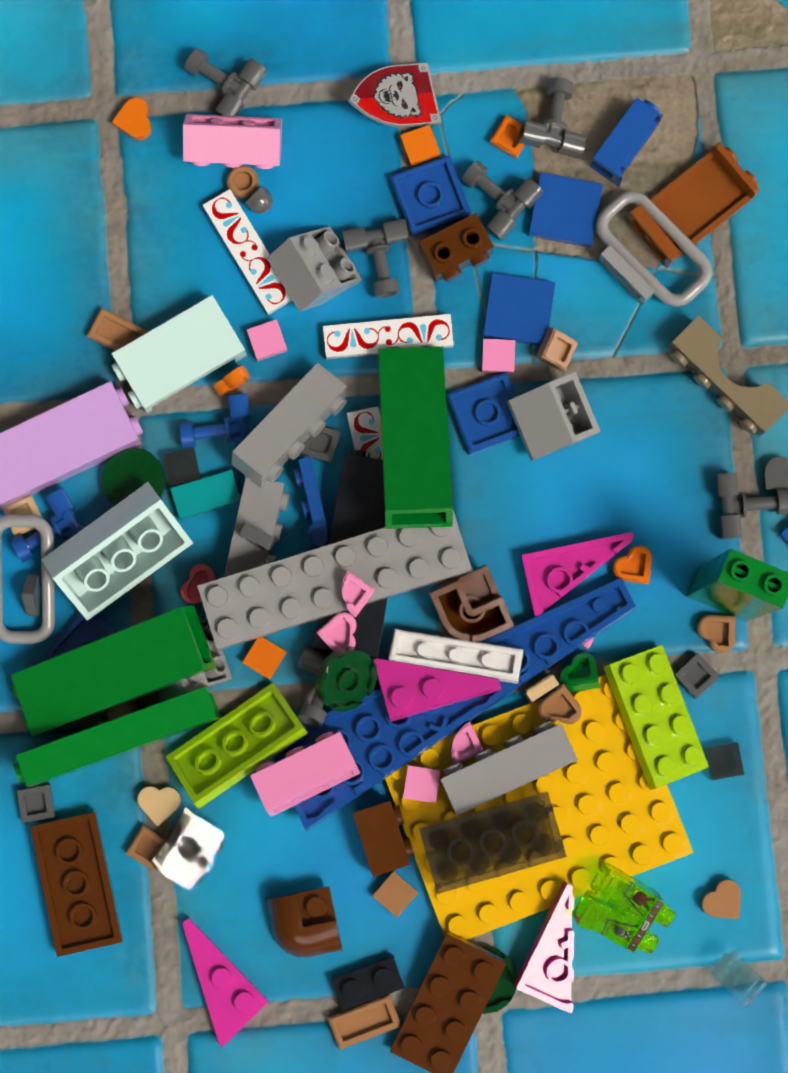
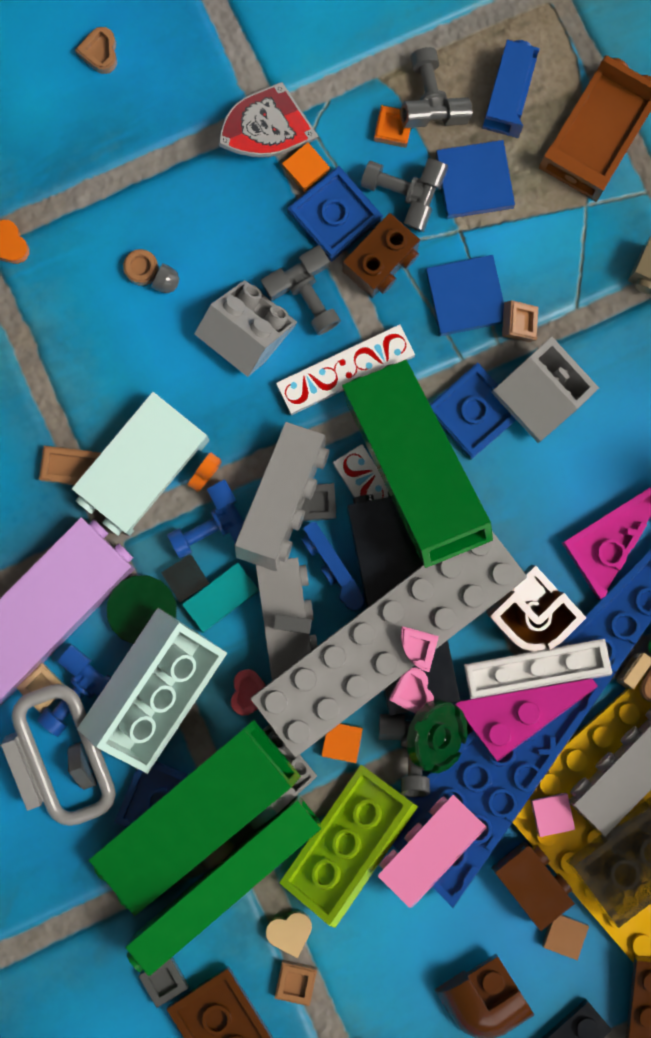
camera: 20 degrees left, 0 degrees up
(189, 849) = (339, 972): clear smoke brick -> none
(232, 140) = (115, 228): bright pink brick -> none
(233, 87) = (97, 173): dark grey bar -> none
(247, 250) = (171, 334): white tile -> none
(267, 340) = (224, 417): bright pink tile -> none
(465, 744) = (581, 757): bright pink tile -> none
(498, 356) = (463, 349): bright pink tile -> none
(631, 271) = (567, 218): light grey bar -> none

